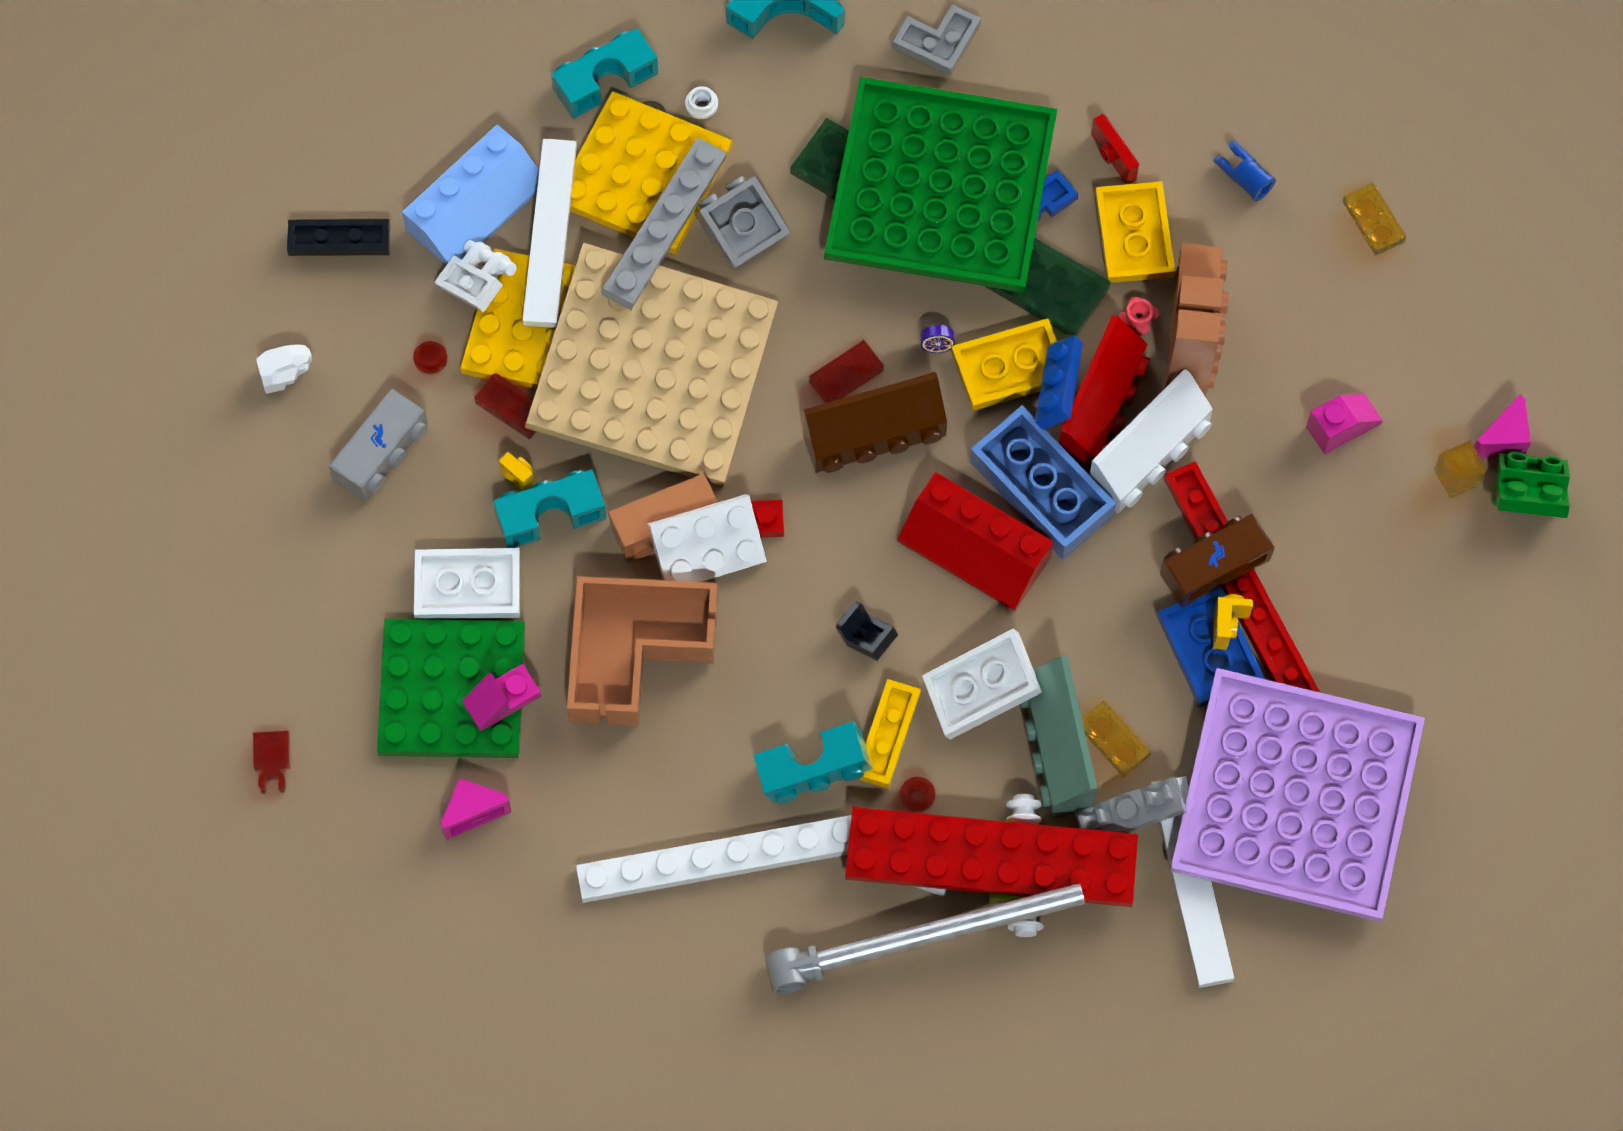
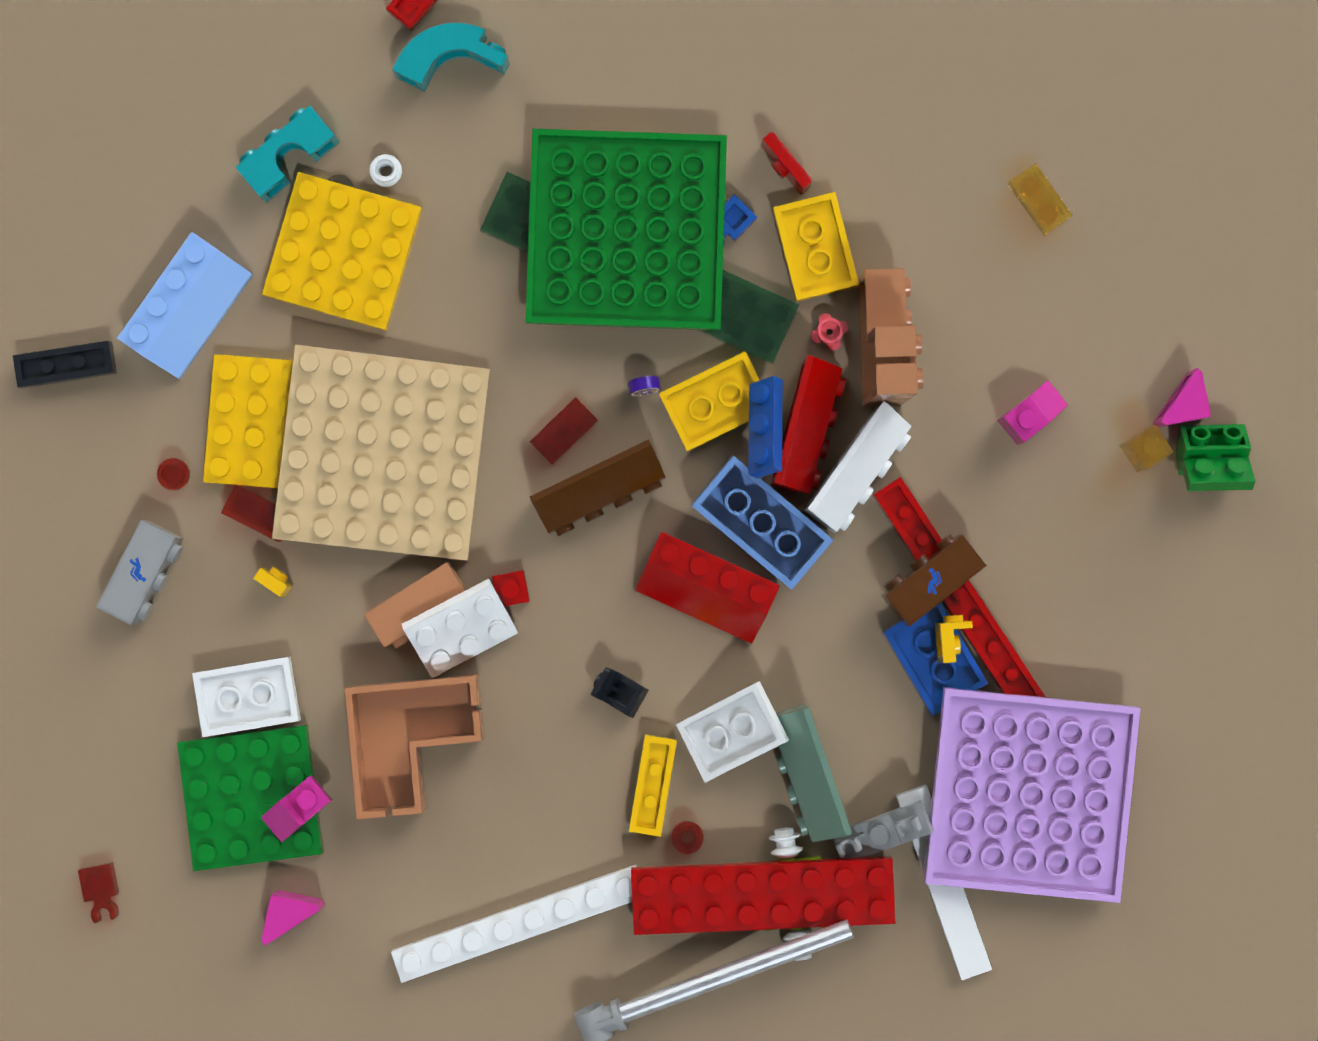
camera: 10 degrees left, 20 degrees up
(283, 366) = (35, 508): white rock -> none
(471, 284) = (193, 396): white plate -> none
(549, 233) = (262, 334): white tile -> none
(575, 495) = (283, 623): teal arch -> none
(664, 224) = (368, 313): light grey plate -> none
(741, 221) = (442, 292): light grey plate -> none
(842, 758) = (564, 842): teal arch -> none
(938, 47) = (604, 77): light grey plate -> none
(1114, 739) = (857, 759): clear yellow plate -> none
(1248, 173) = (917, 172): blue hinge -> none

